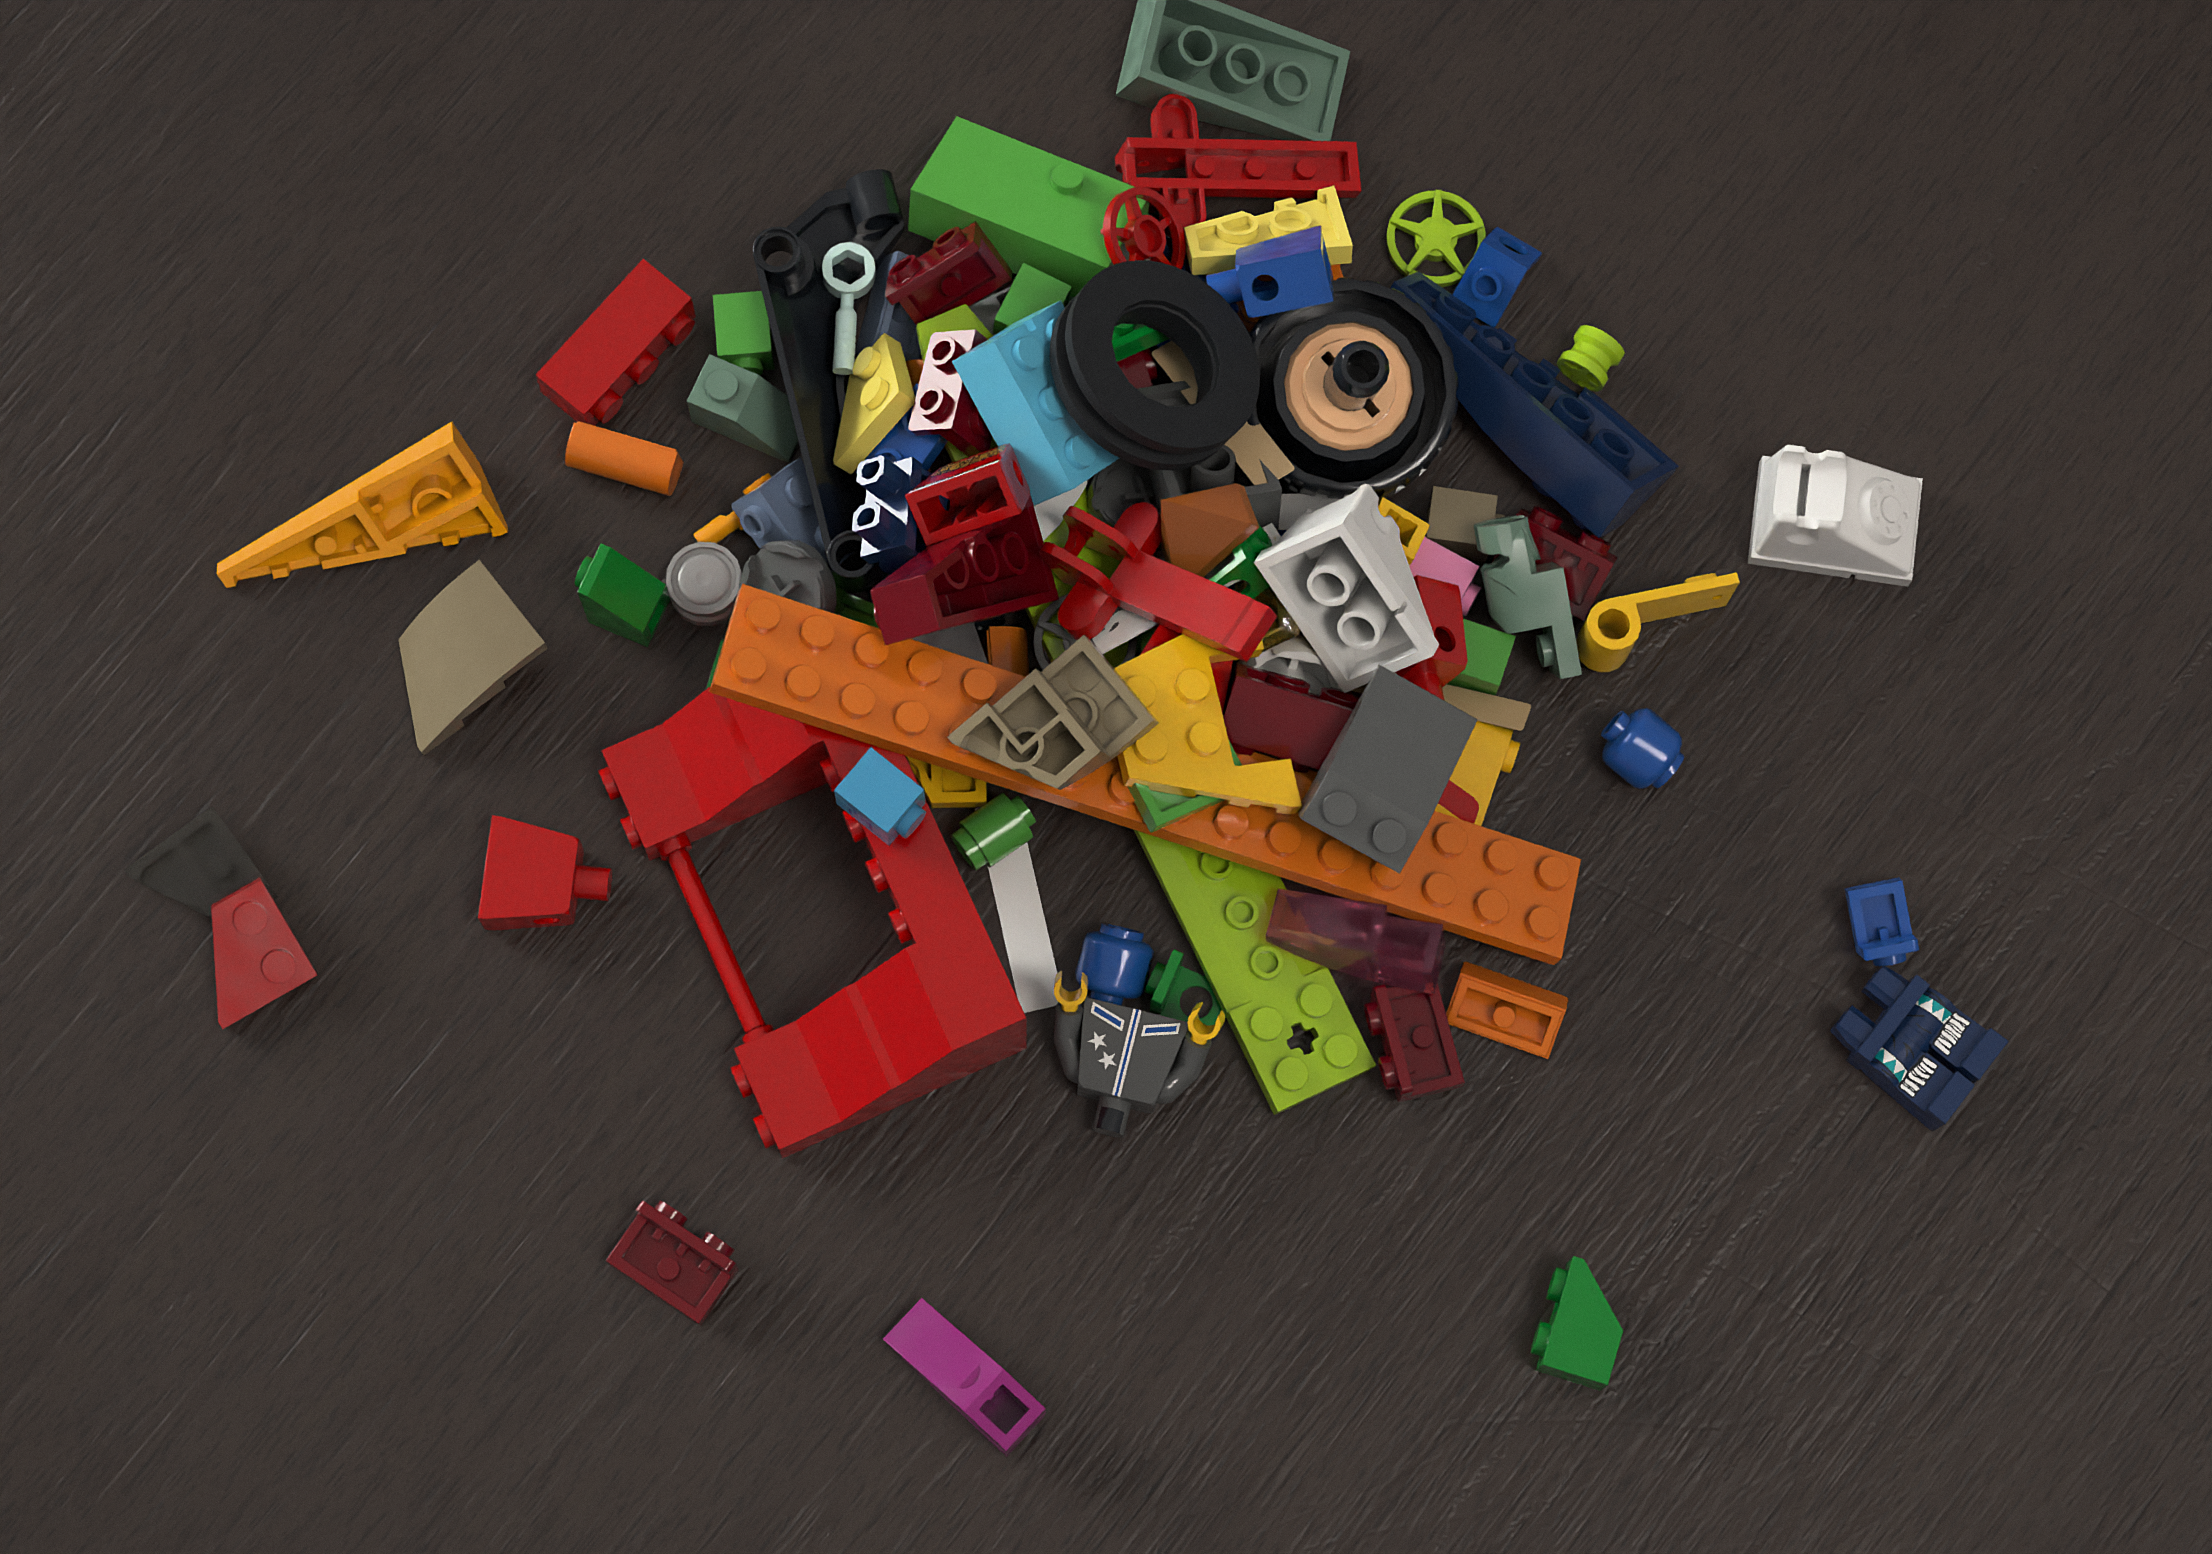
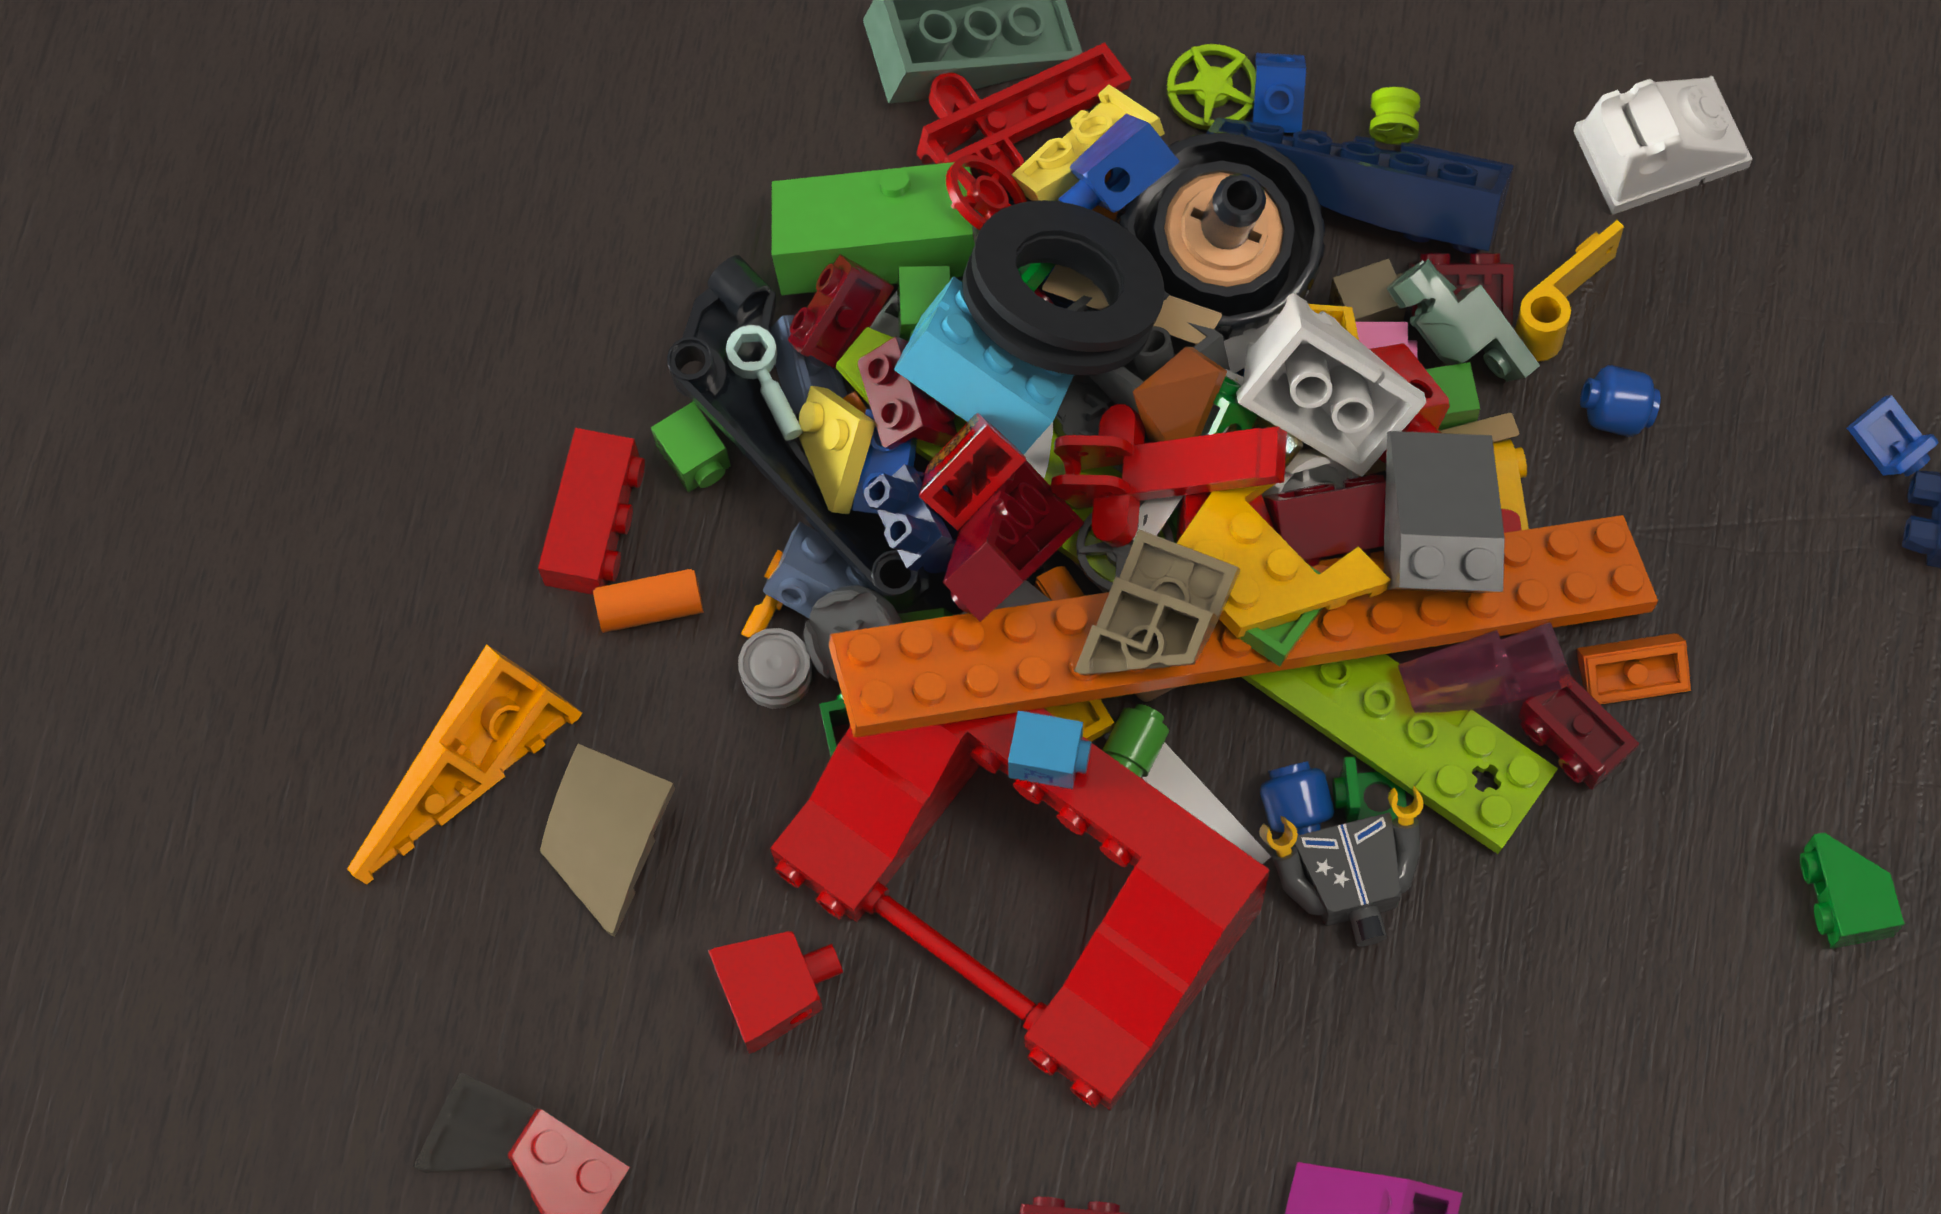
camera: 20 degrees left, 5 degrees down
(621, 595) = (712, 713): green slope -> none
(743, 408) = (728, 508): sand green slope -> none

